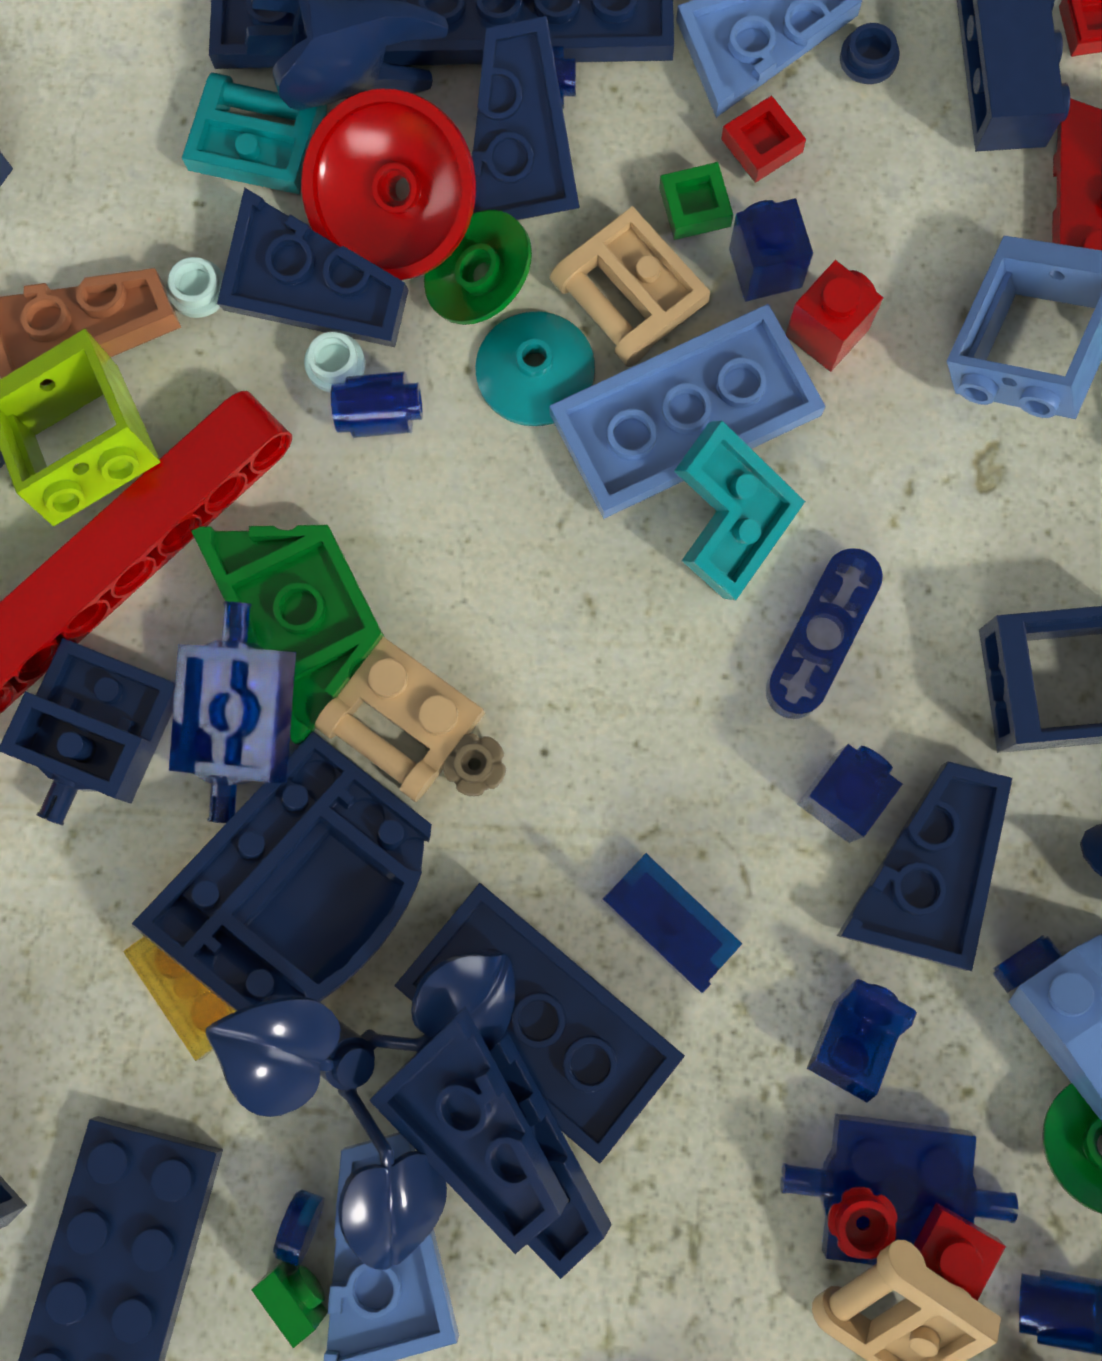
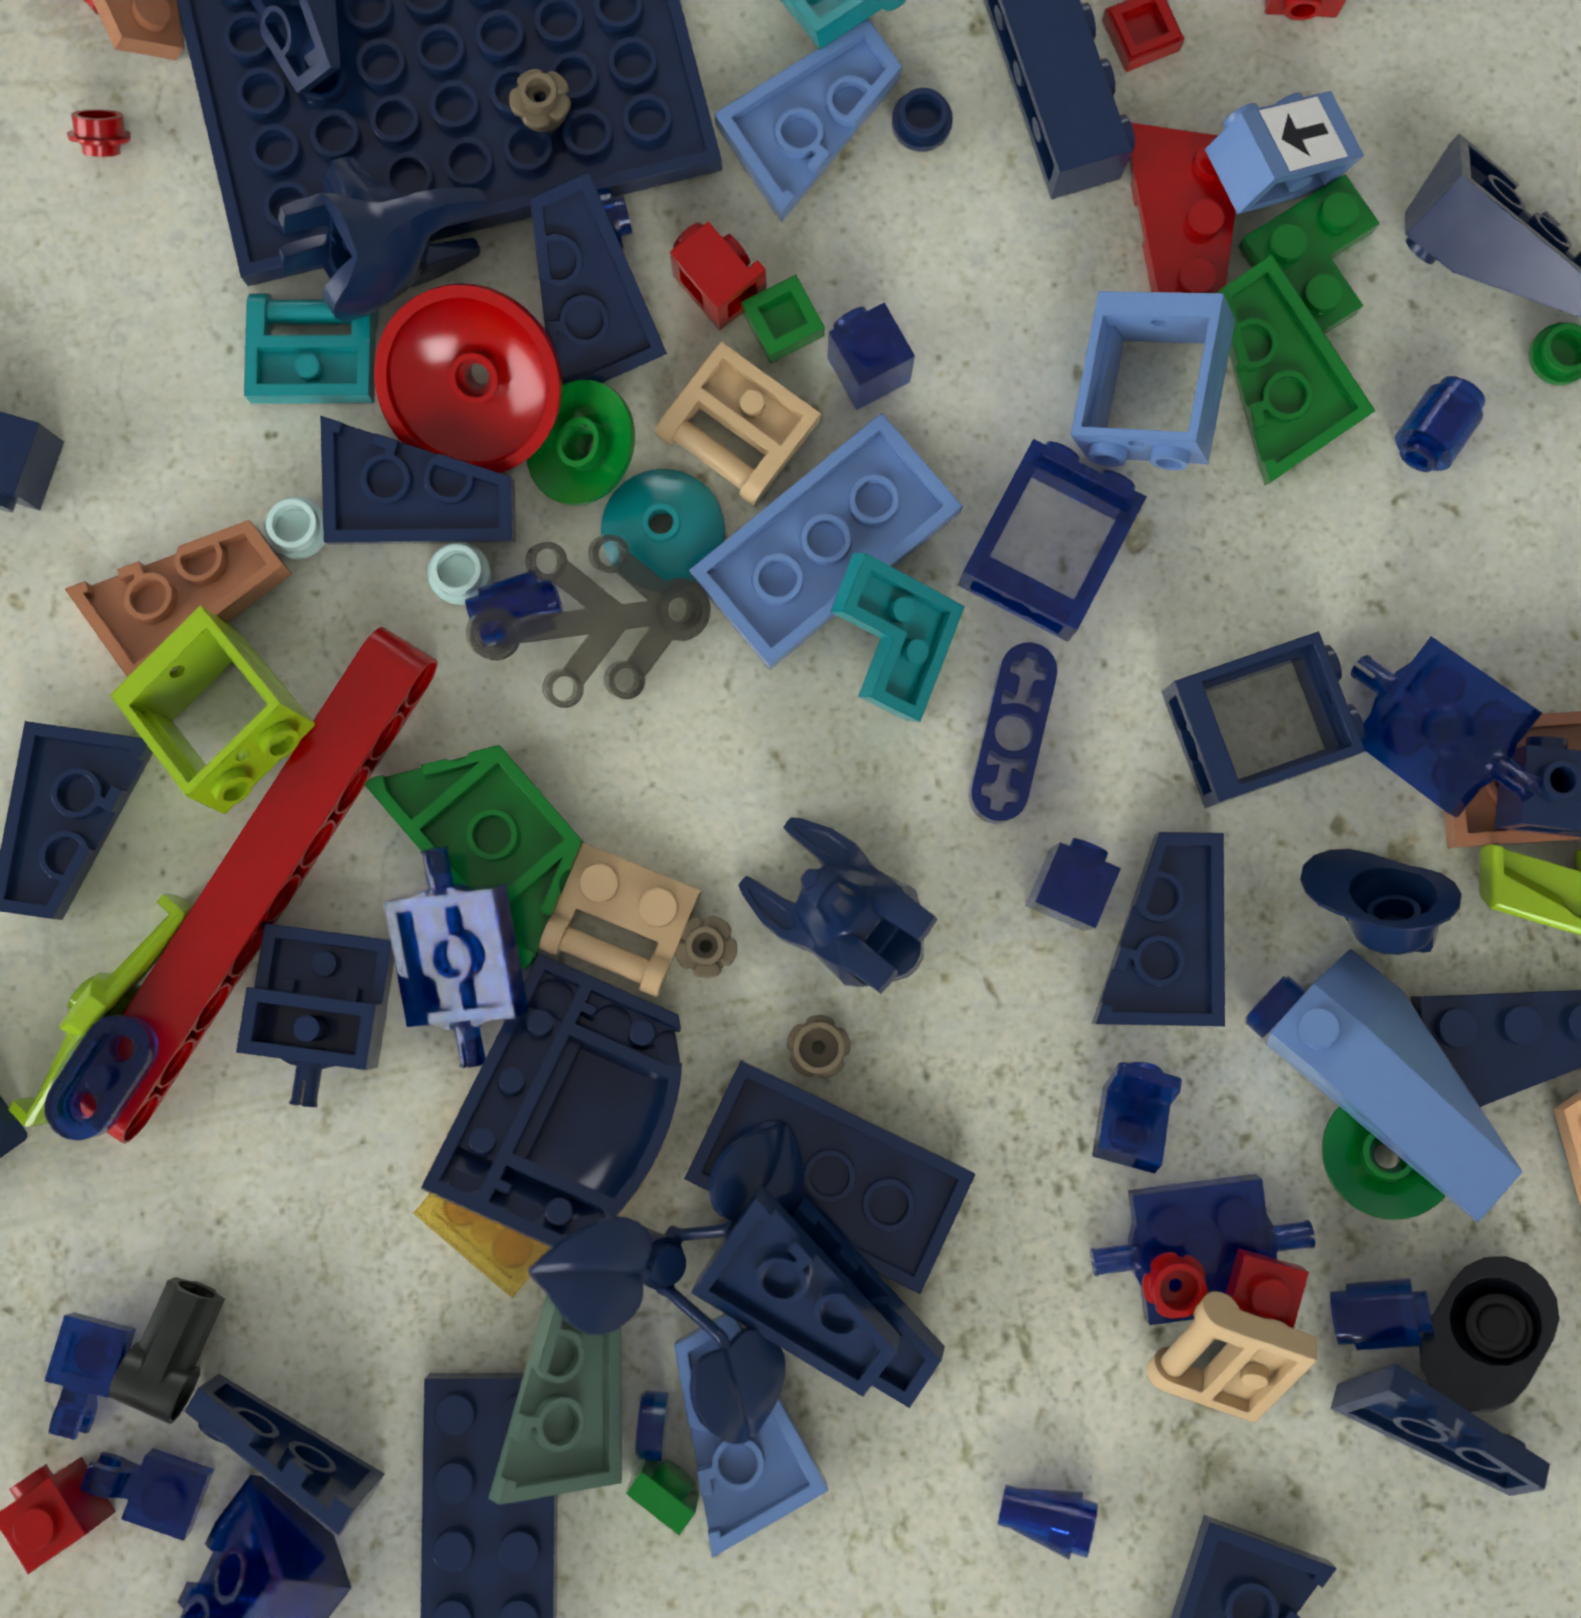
camera: 20 degrees left, 5 degrees up
(213, 1195) = (565, 1415): none -> sand green wing
(454, 430) = (601, 620): none -> clear smoke plant
(563, 908) = (818, 1029): none -> dark tan plate
(620, 763) = (847, 912): none -> dark blue piece
(643, 145) = (715, 272): none -> red brick
(671, 923) = (932, 1051): clear blue panel -> none
(763, 139) = (835, 236): red plate -> none
(834, 314) = (949, 409): red brick -> none
(862, 500) = (1024, 596): none -> clear blue window

